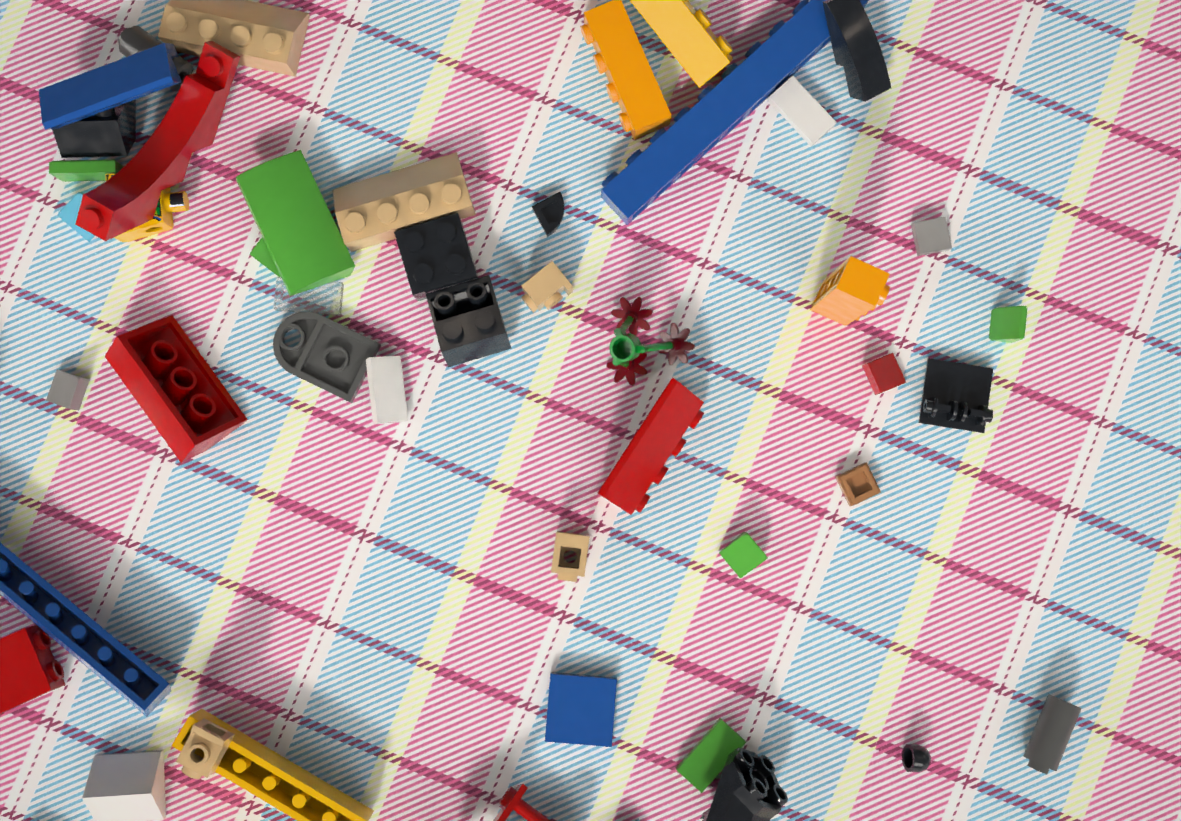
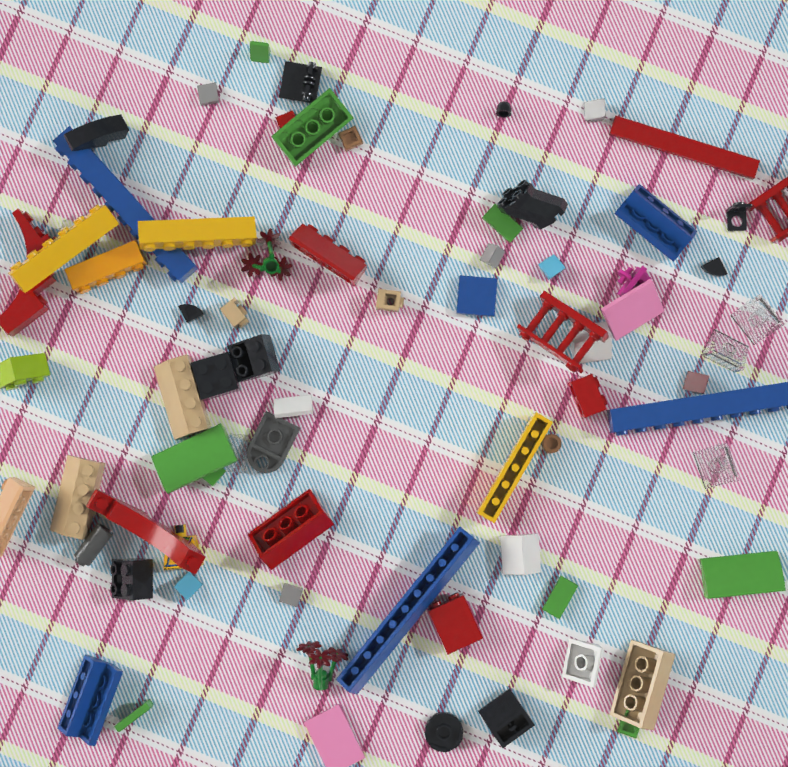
camera: 85 degrees left, 0 degrees up
(83, 169) = (160, 584): bright green tile -> none
(108, 86) = (112, 563): blue slope -> none
(212, 740) = (488, 502): tan brick -> none
(653, 737) = (492, 255): none -> light grey slope
(683, 218) = (196, 233): none -> yellow brick
(743, 554) = (389, 203): bright green slope -> none
(802, 111) = (133, 166): white tile -> none
(851, 291) = (241, 138): light orange brick -> none
(875, 417) = (312, 127): none -> bright green slope
(1051, 734) = (490, 34): dark grey brick -> none

